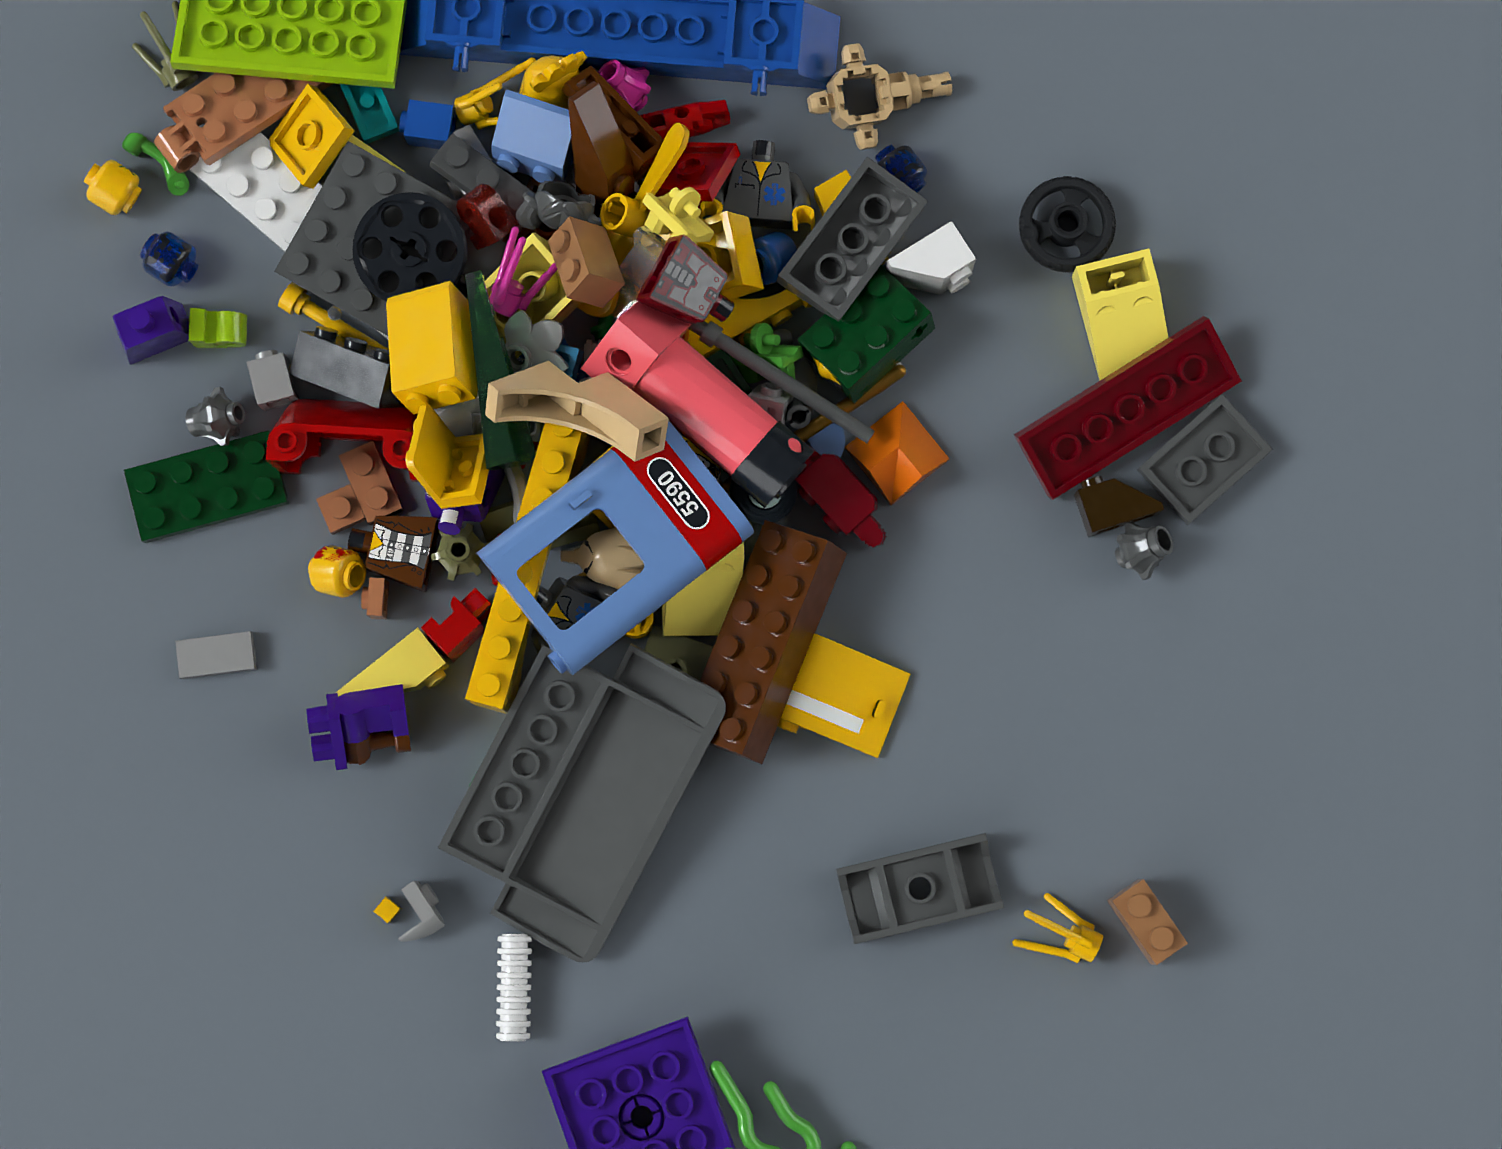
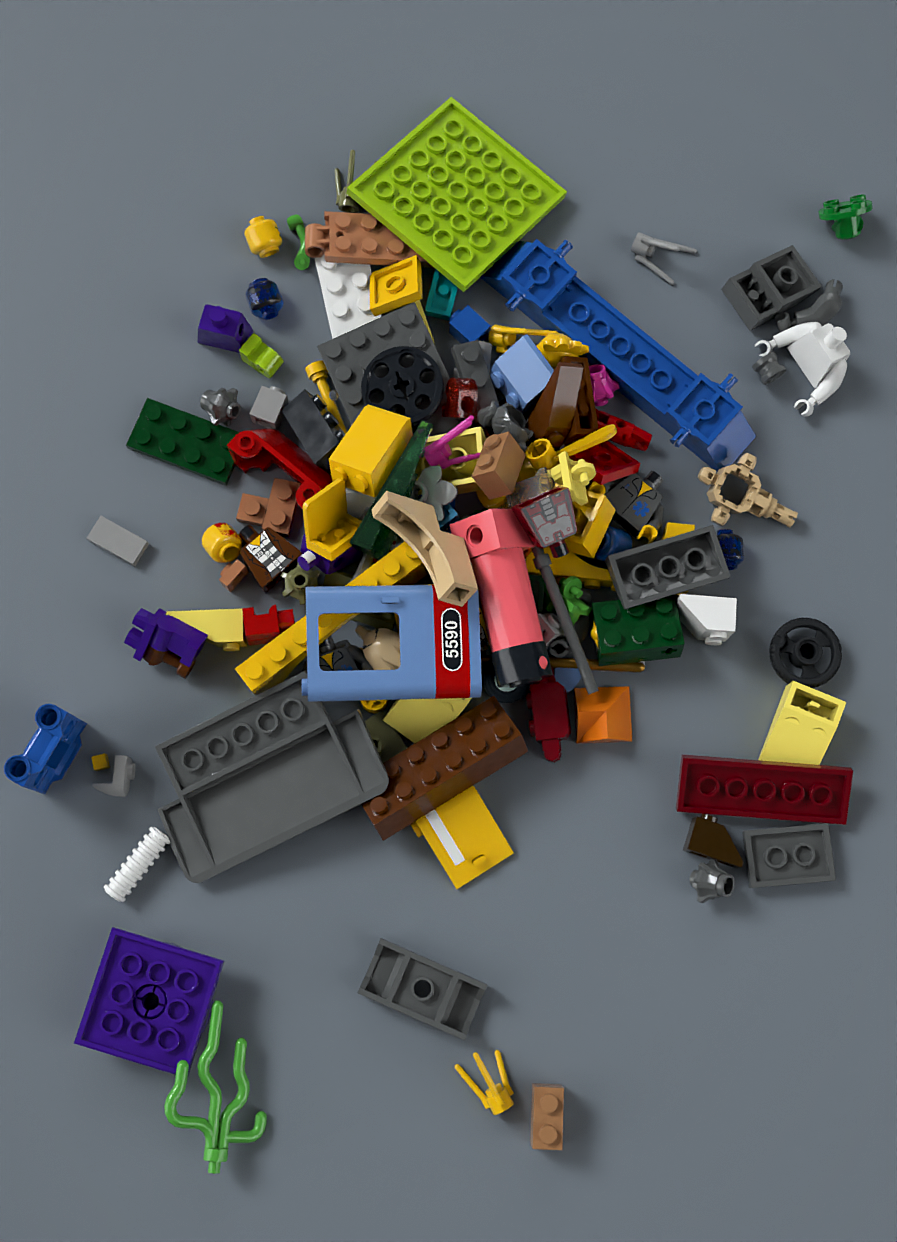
camera: 30 degrees right, 5 degrees down
(326, 937) = (48, 751): none -> blue piece

